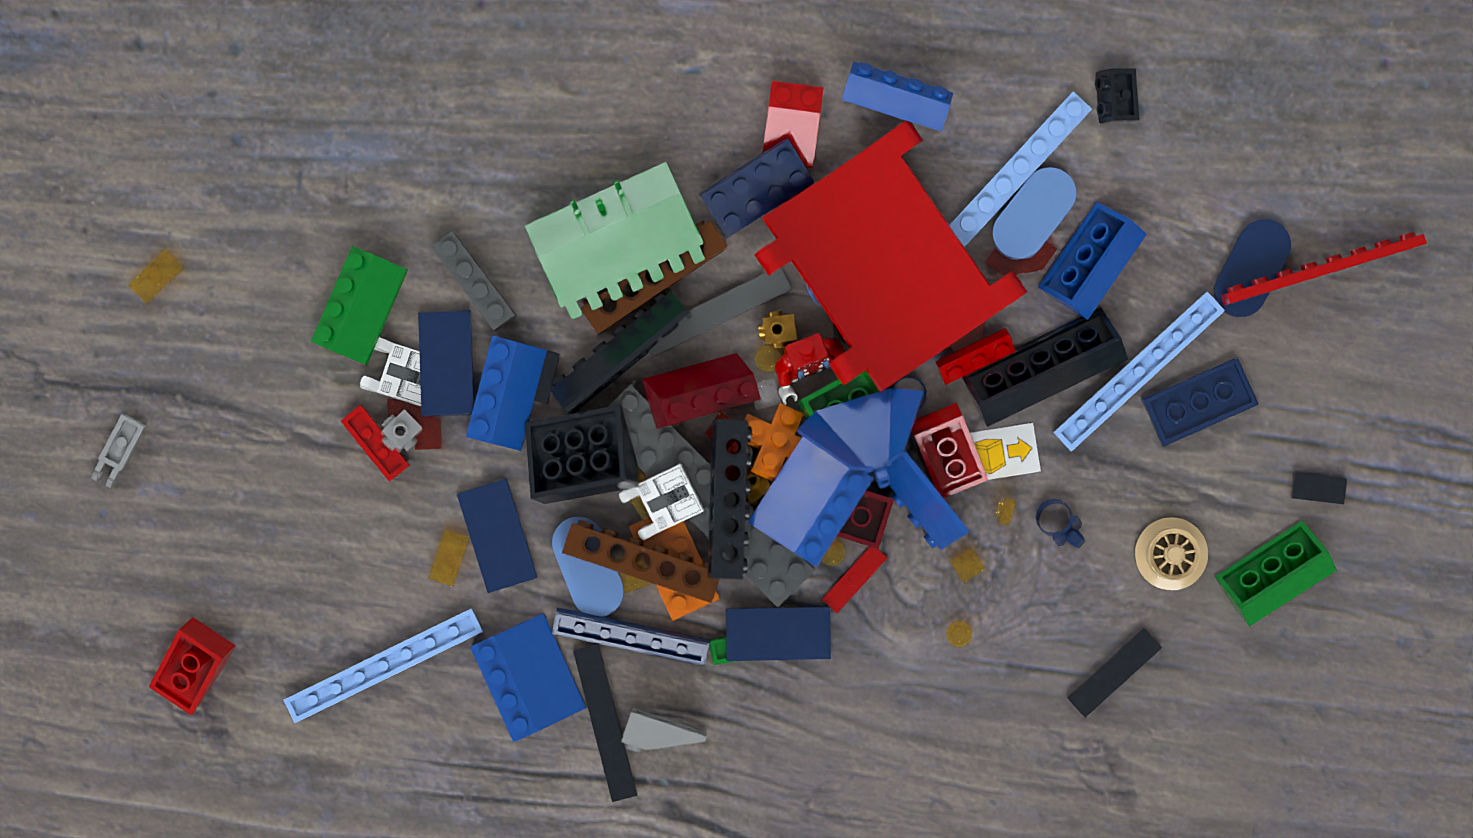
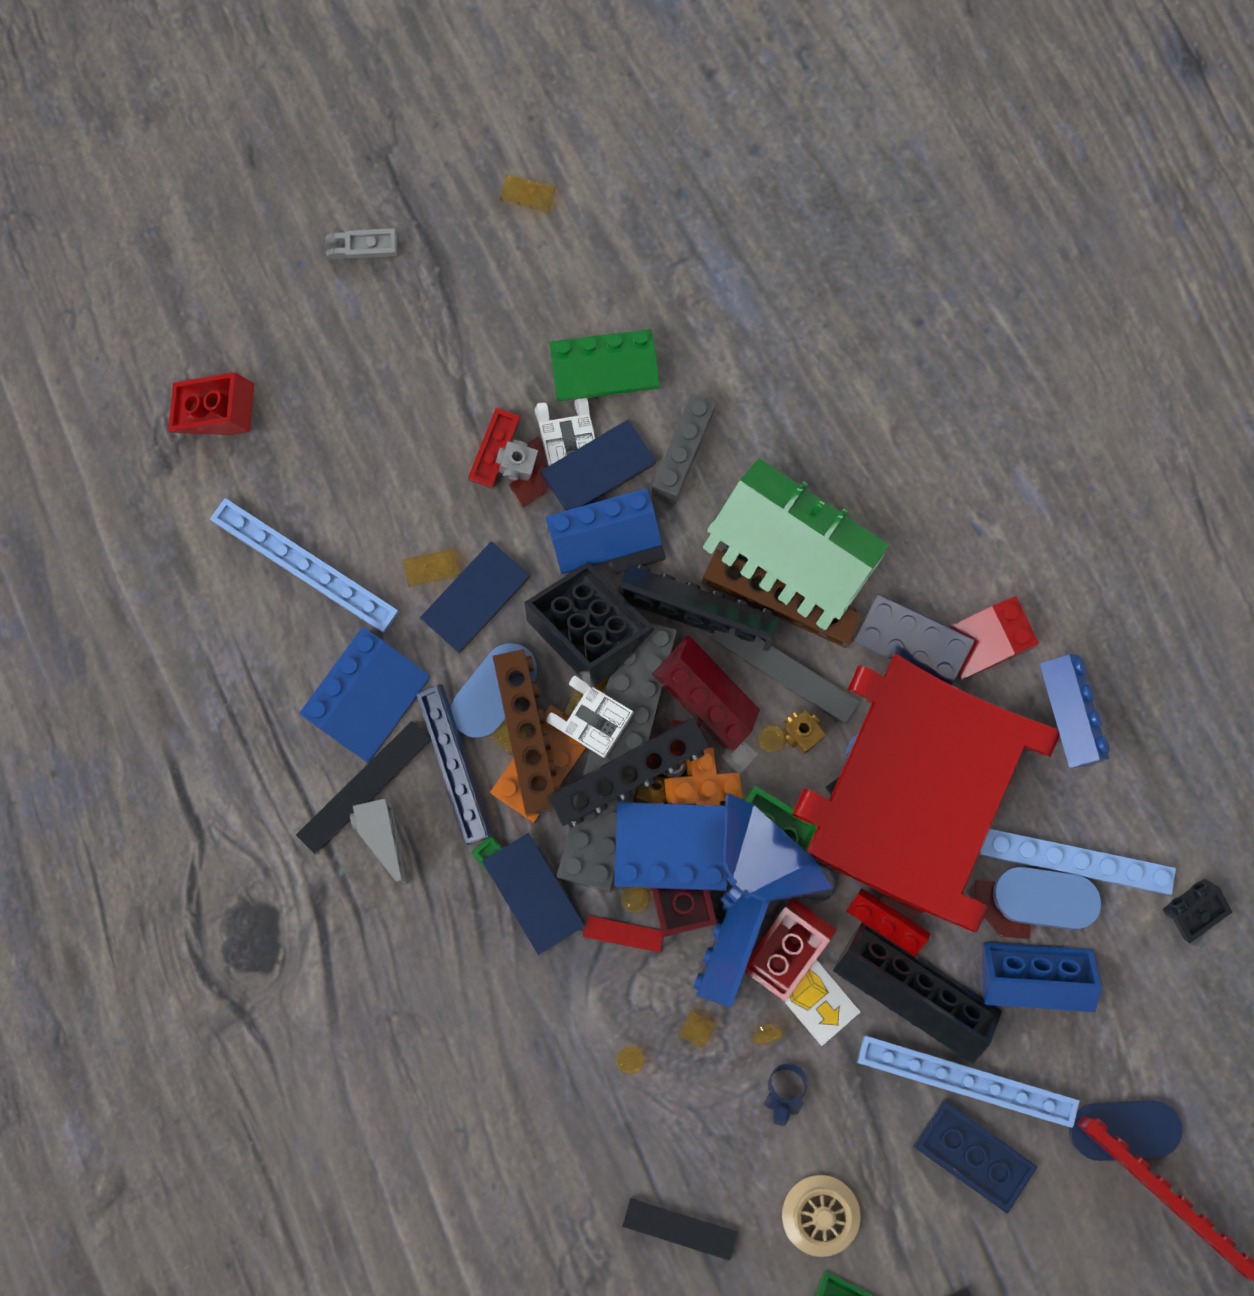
camera: 50 degrees right, 10 degrees down
(803, 360) = (790, 769): red torso -> none

